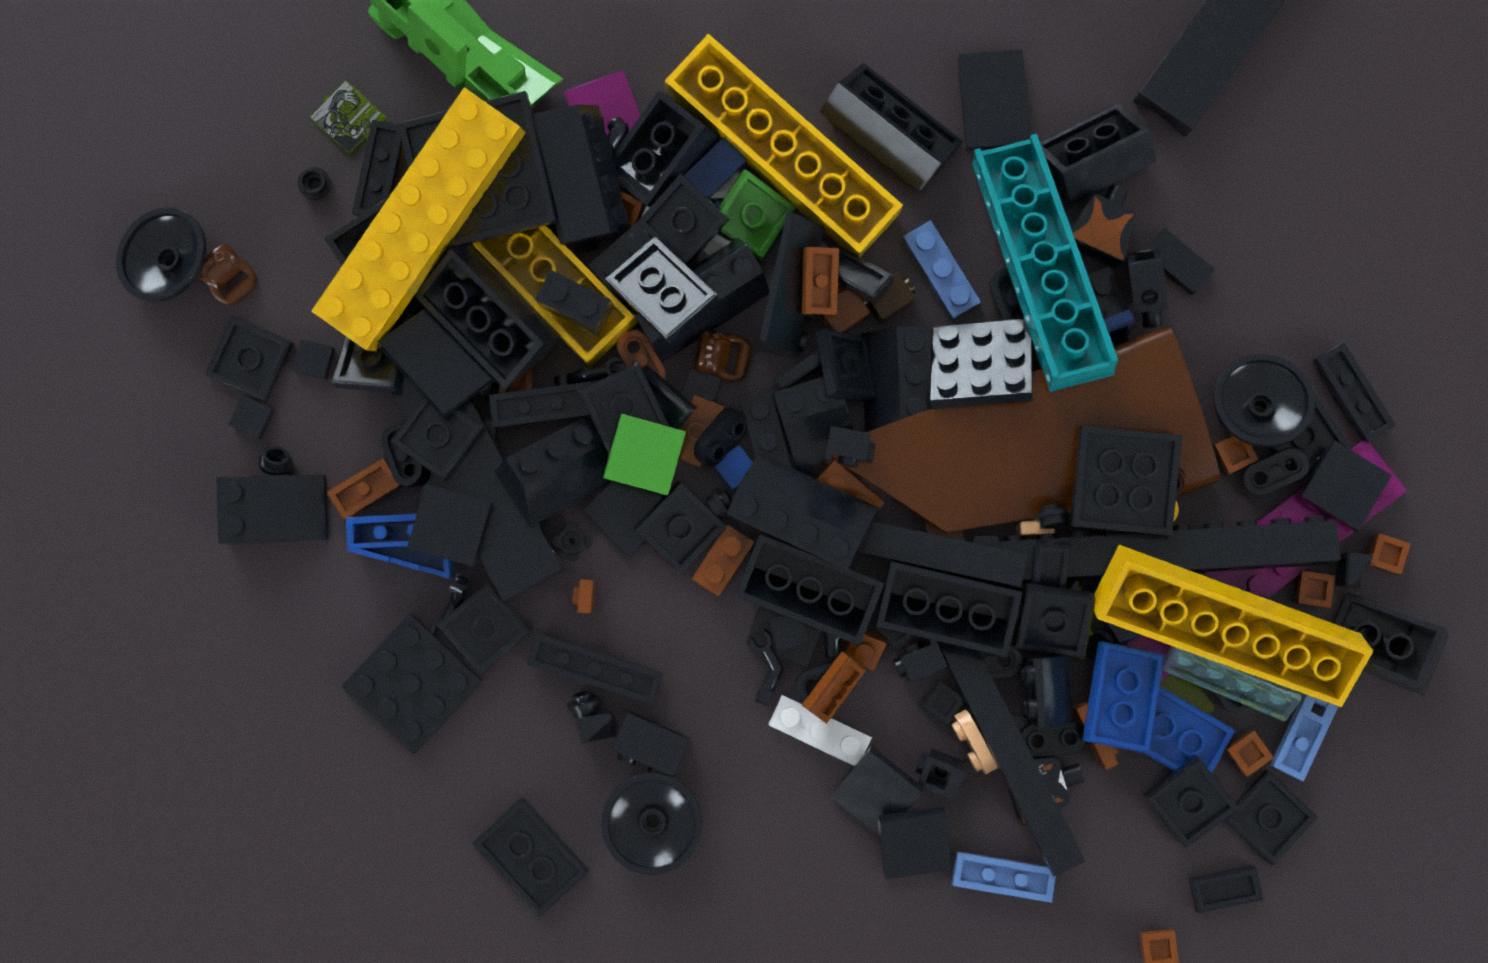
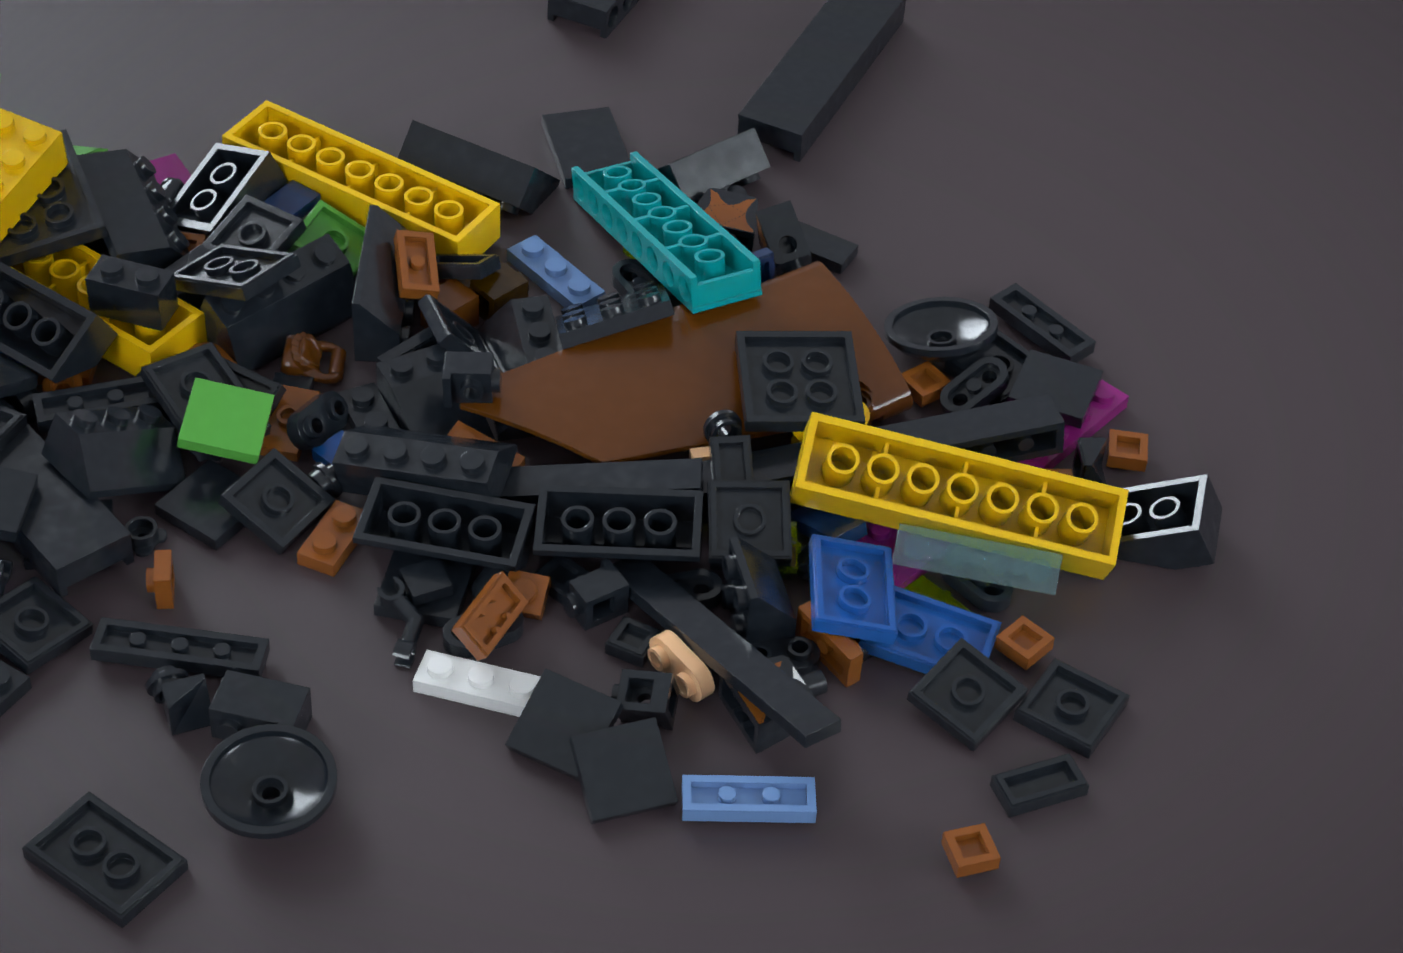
camera: 10 degrees left, 40 degrees down
(1303, 737) = (1085, 619): medium blue plate -> none

